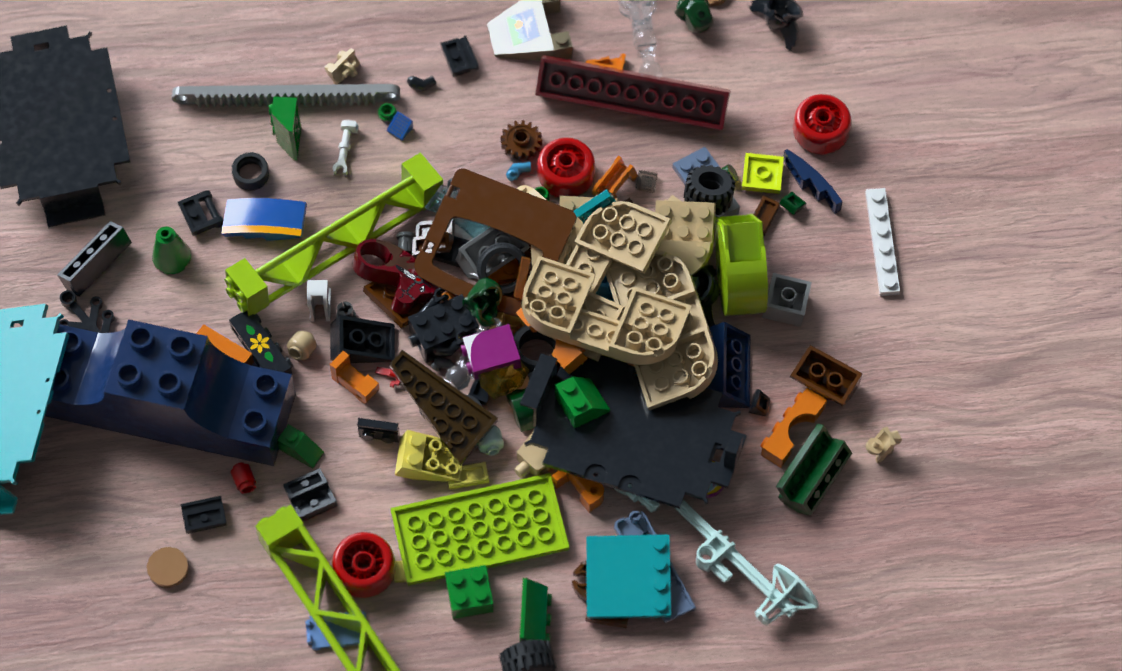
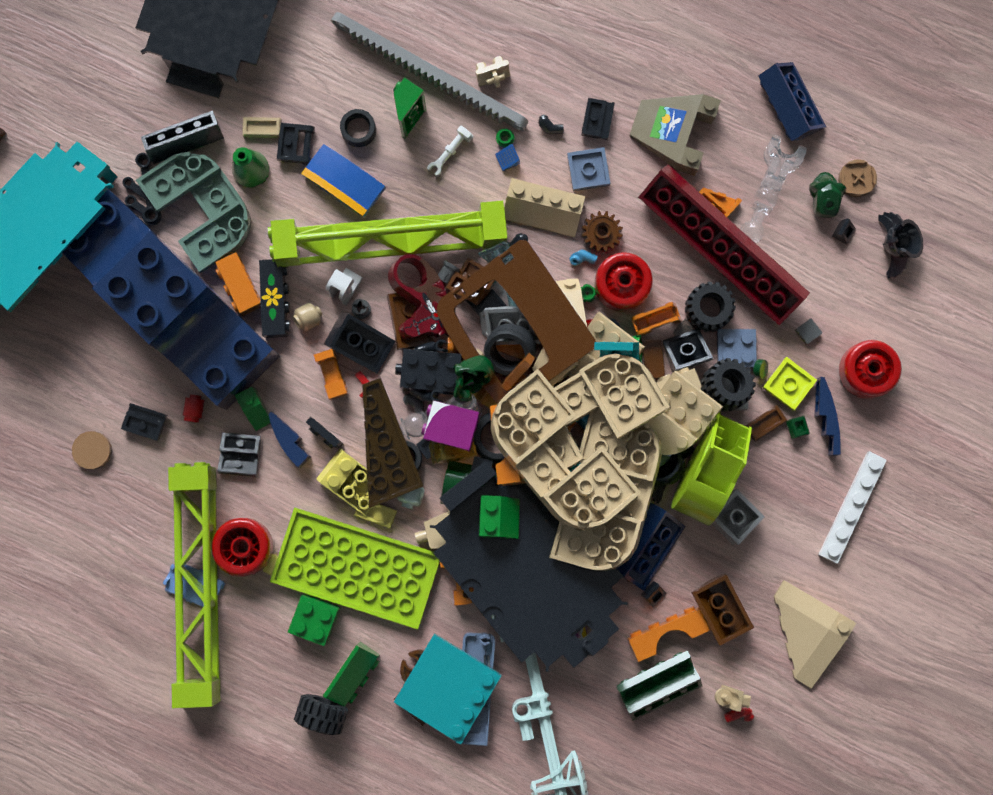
camera: 30 degrees right, 20 degrees up
(133, 283) = (226, 210): none -> sand green plate
(161, 217) = (261, 127): none -> tan tile
(349, 456) = (288, 440): none -> dark blue slope
(459, 146) = (543, 207): none -> tan slope
(477, 98) = (588, 169): none -> sand blue plate
(655, 135) = (724, 300): none -> black tyre
(655, 188) = (687, 350): none -> black slope
(728, 33) = (844, 231): none -> black slope
(751, 125) = (808, 331): none -> dark grey tile
(898, 457) = (734, 715): none -> red arm
(916, 356) = (812, 632): none -> tan slope

